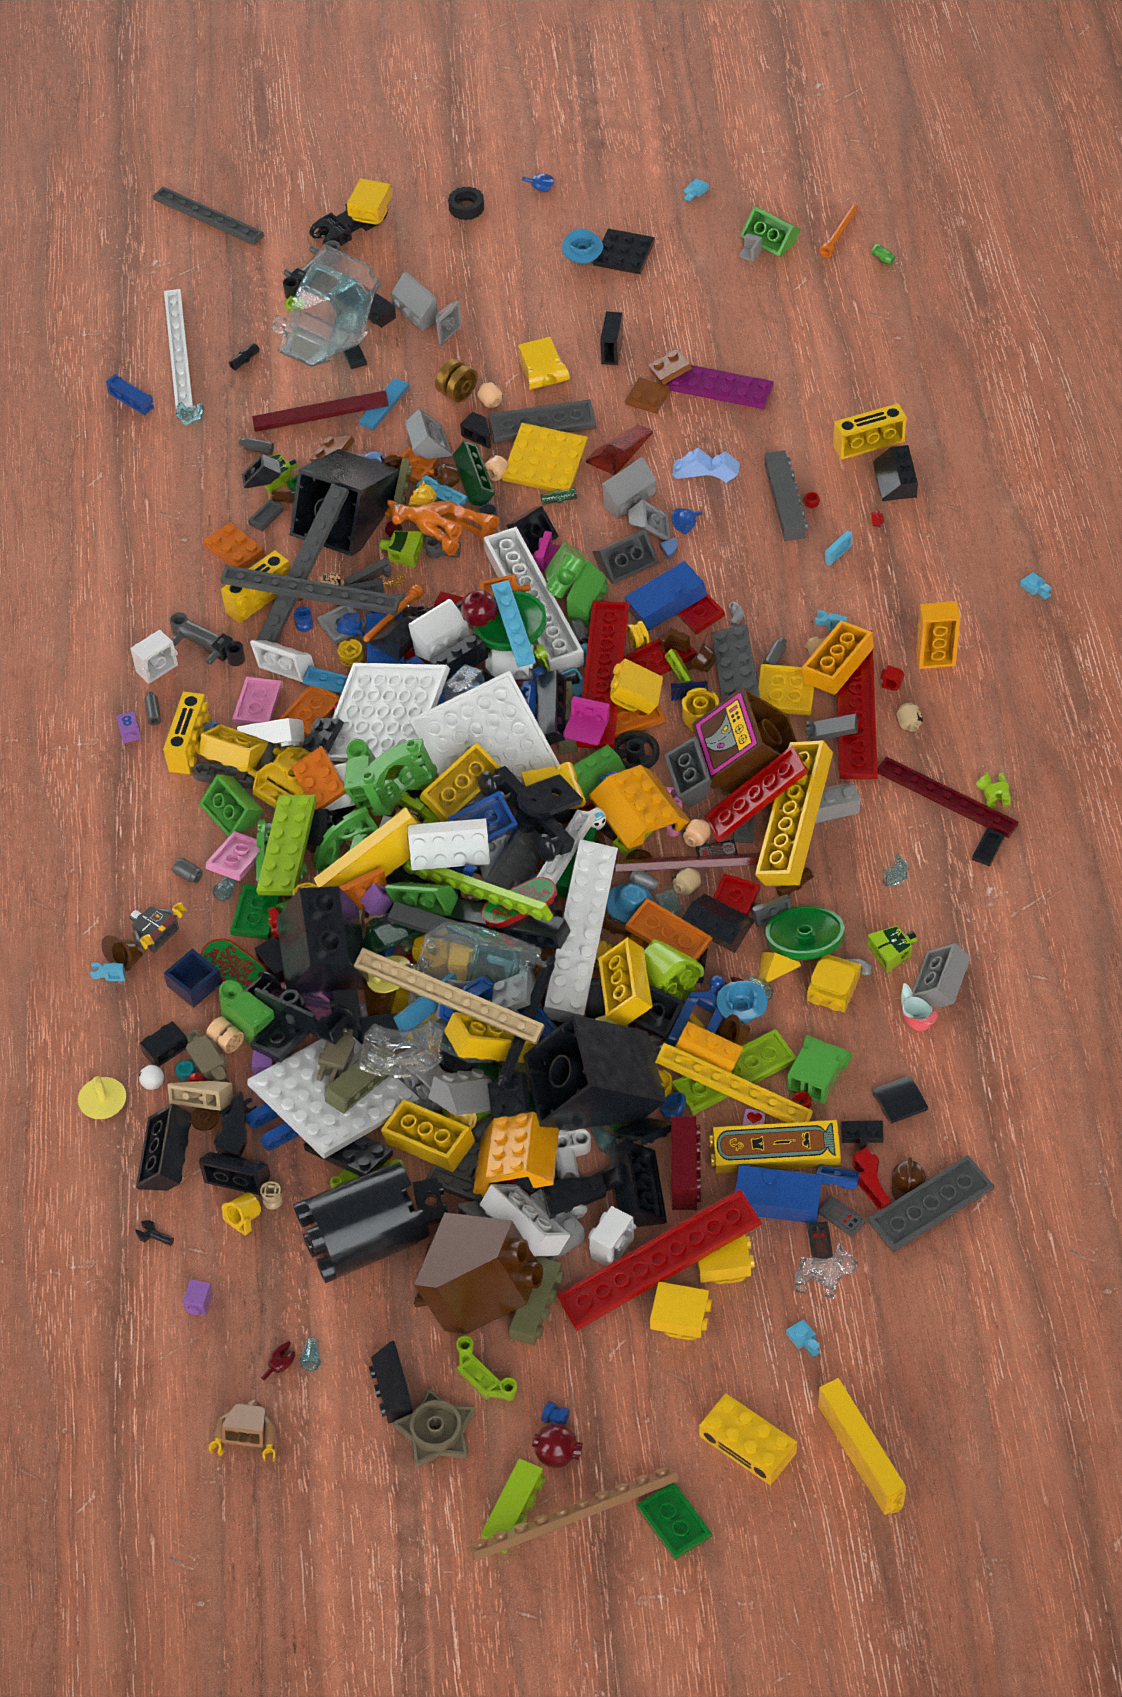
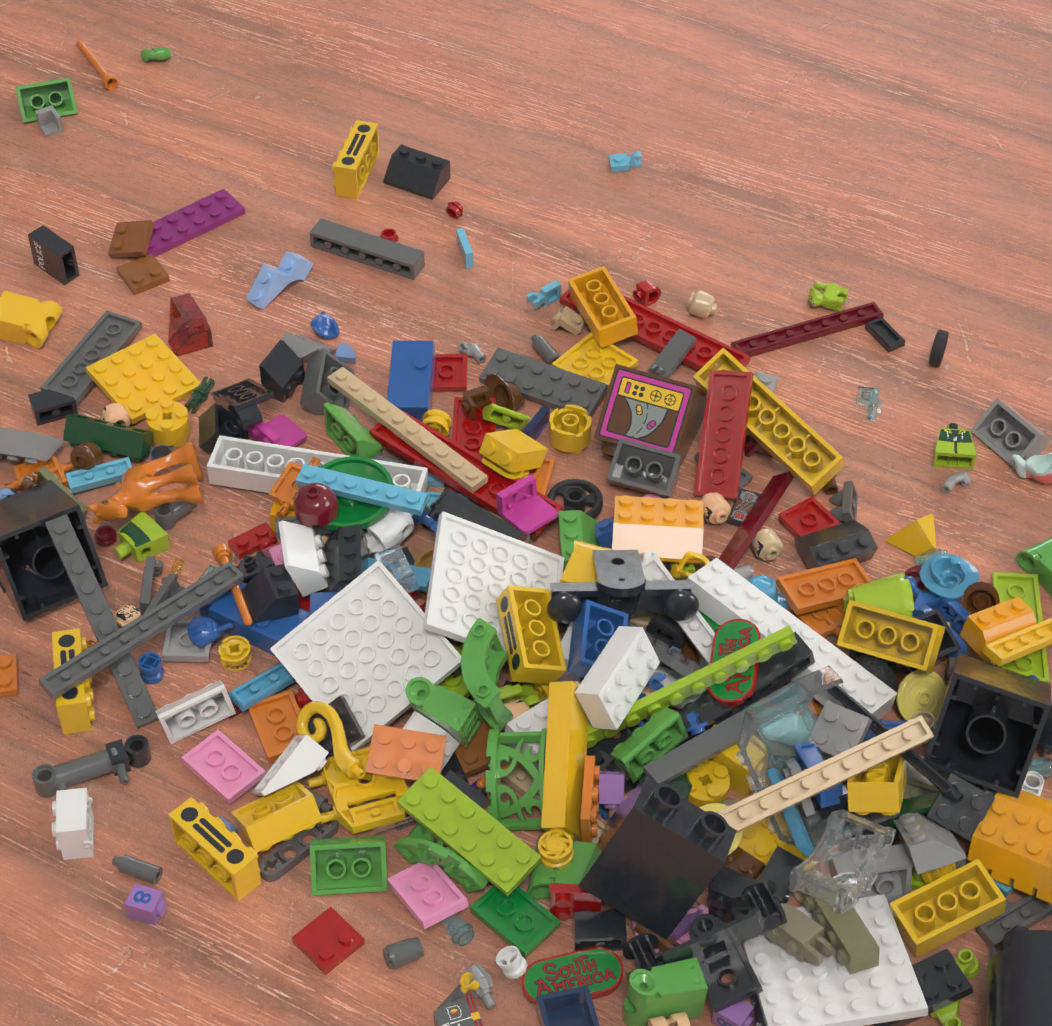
camera: 60 degrees left, 5 degrees down
(171, 830) = (328, 940): none -> red plate
(192, 923) = (484, 991): none -> light grey piece
(218, 927) = (511, 962): none -> white wheel
(309, 728) = (344, 758): none -> yellow plant
(422, 496) = (99, 485): yellow hair -> none
(456, 910) = (696, 727): none -> blue plate
(490, 395) = (17, 374): light nougat head -> none
(513, 496) = (168, 423): none -> yellow brick
(564, 516) = (243, 400): none -> black hinge
(564, 569) = (316, 425): bright green piece -> none
(609, 619) = (408, 430): none -> tan plate
(610, 522) = (282, 371): none -> black slope
(624, 840) = (676, 569): none -> yellow piece
(628, 488) = (252, 338): light grey slope -> none
(669, 901) = (778, 568): clear light blue bracket -> none
(805, 932) = (898, 493): green dish -> none
(833, 982) = (967, 505): yellow brick -> none
(938, 634) = (645, 229): light orange brick -> none
(1003, 886) = (938, 347): none -> black tyre

